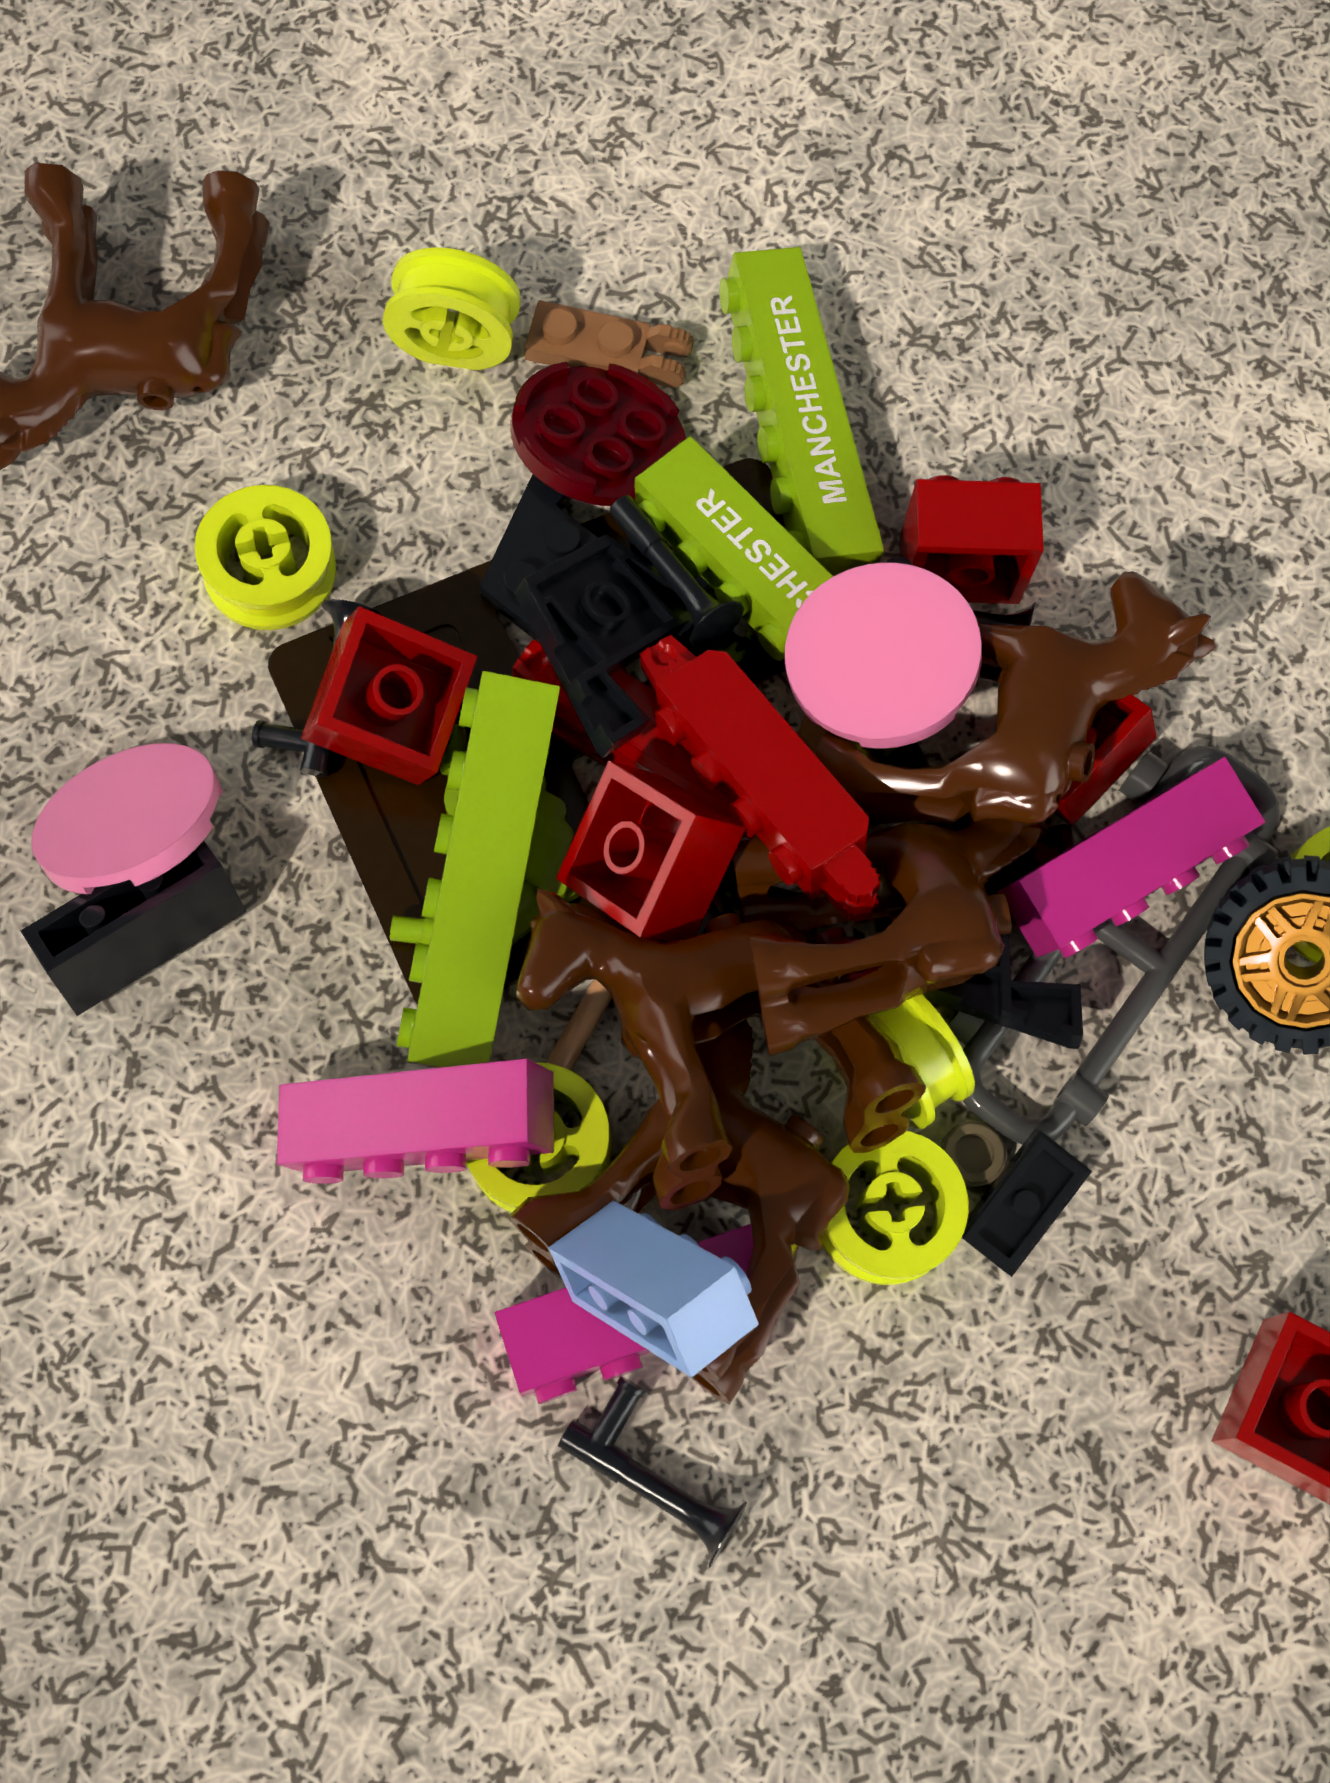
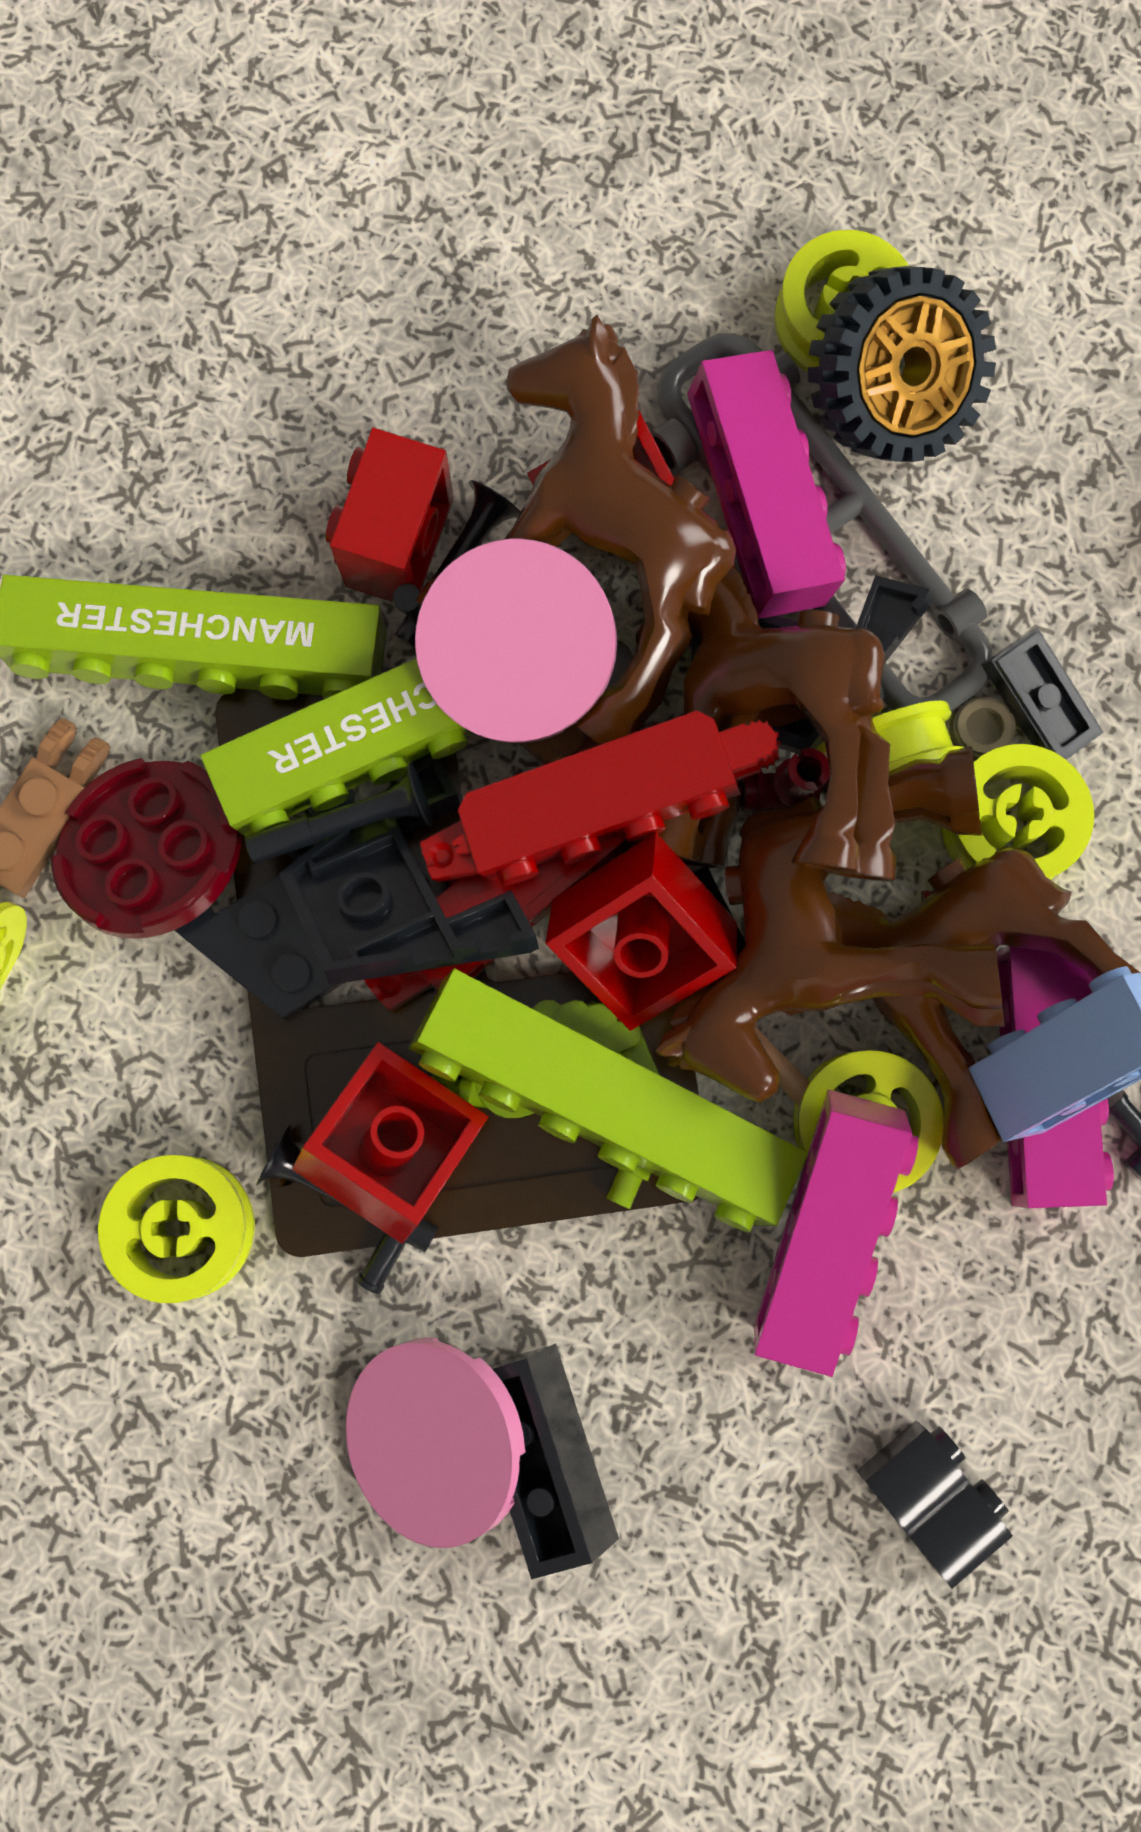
camera: 70 degrees left, 10 degrees up
(179, 1311) = (935, 1502): none -> black brick

